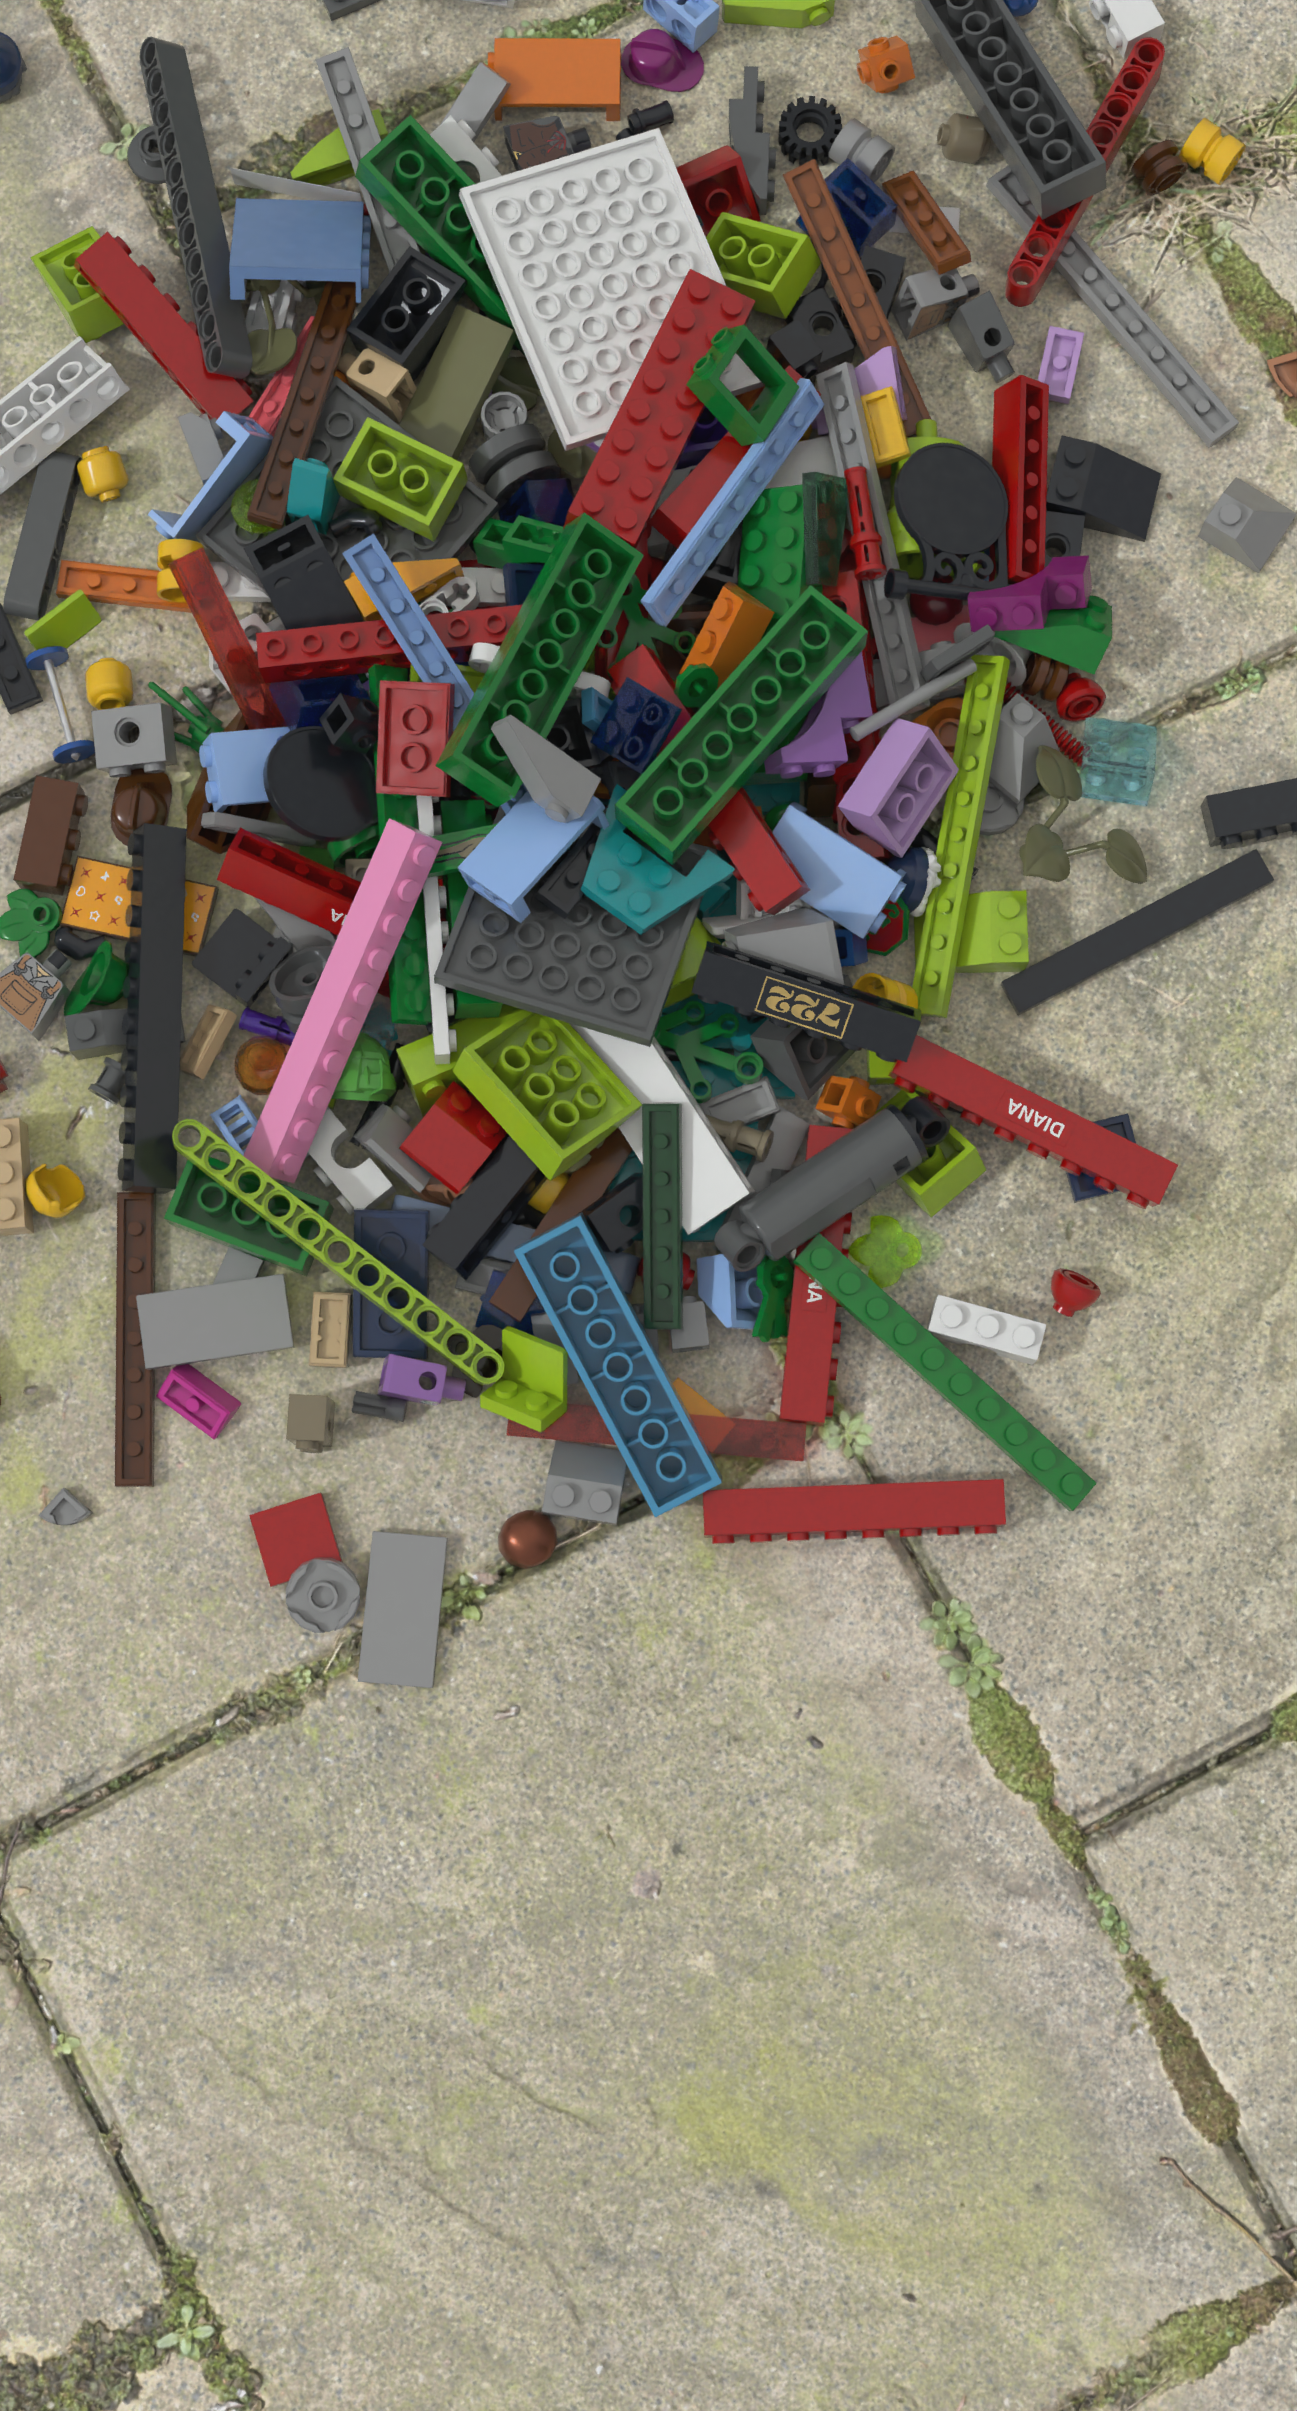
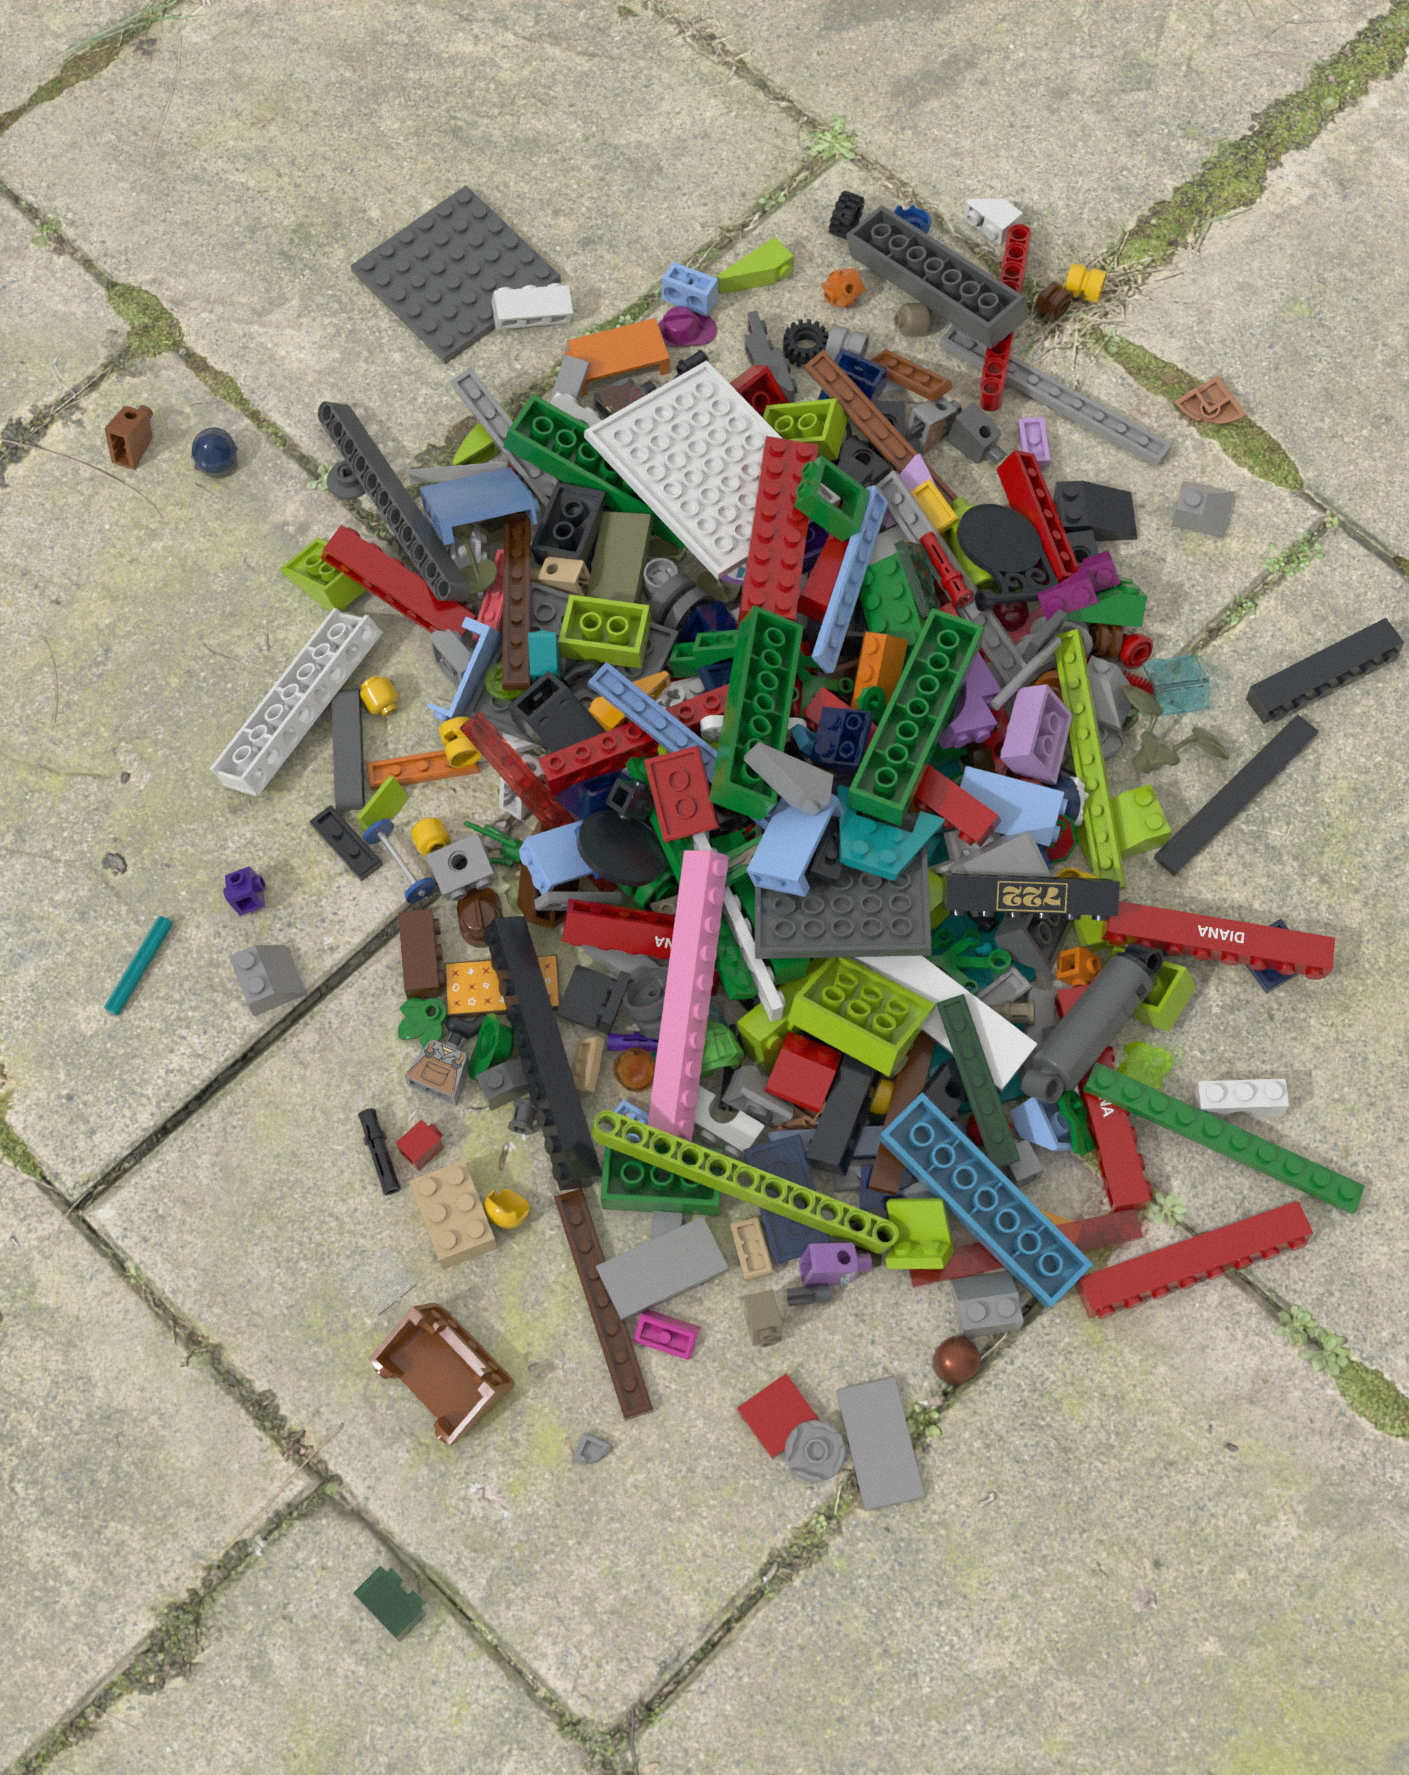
camera: 20 degrees left, 15 degrees down
(1072, 1292) = (1292, 1054): red brick -> none

